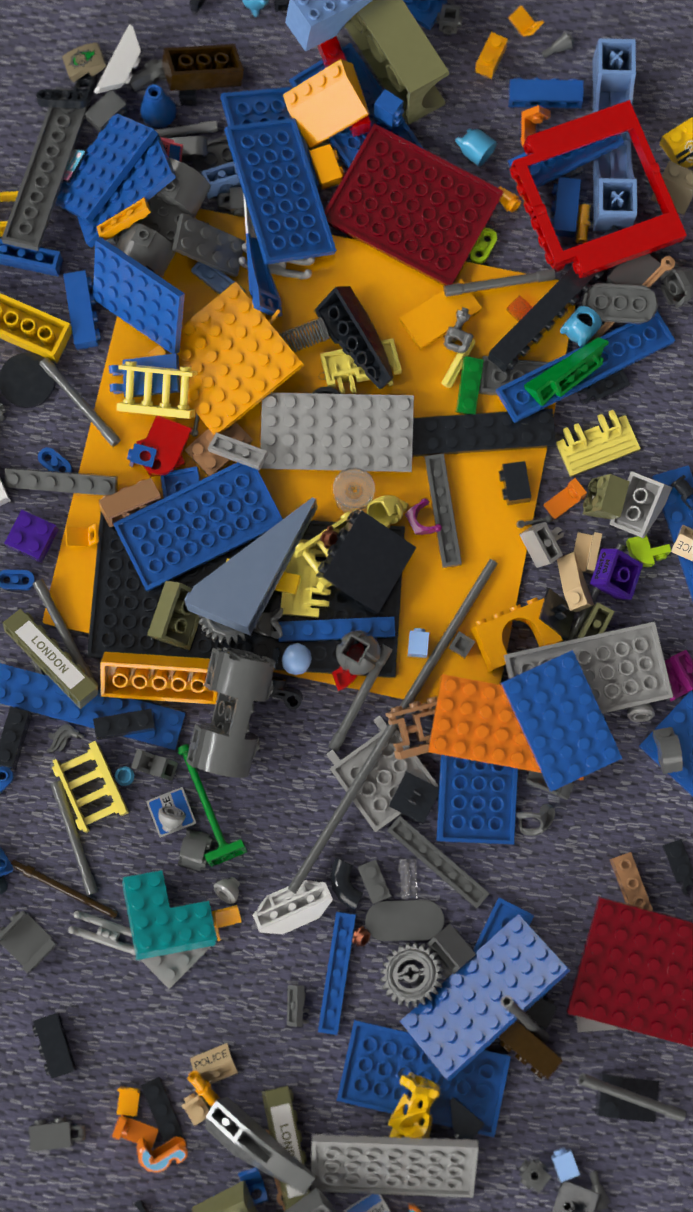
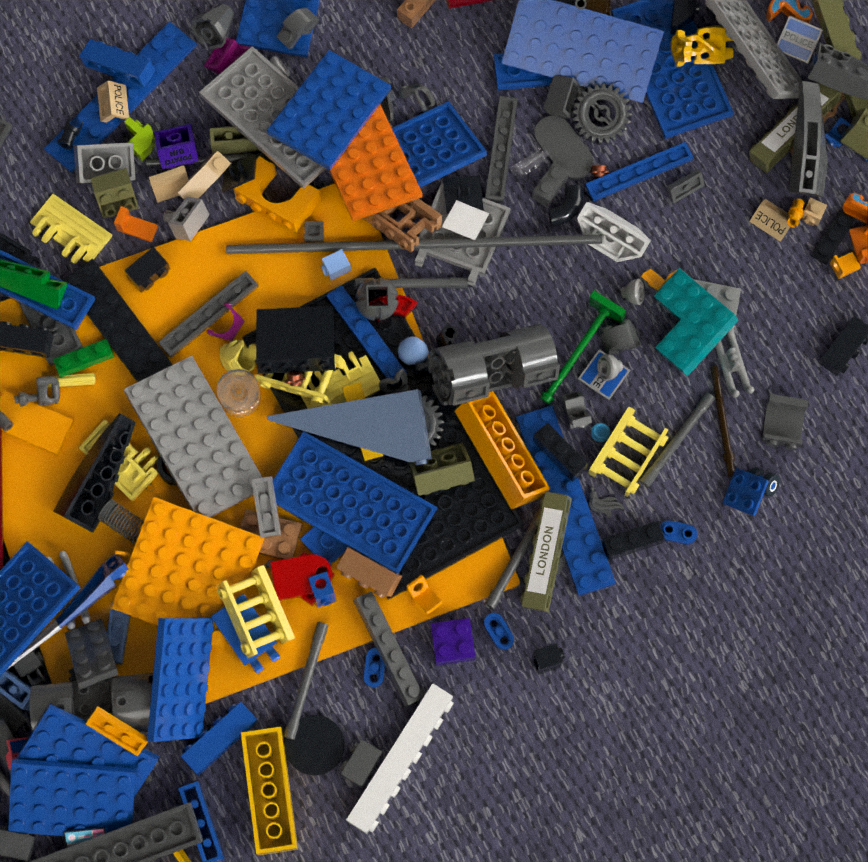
camera: 125 degrees left, 5 degrees down
(387, 782) = (465, 220): none -> white sticker
(520, 524) = (180, 246): dark grey hinge -> none

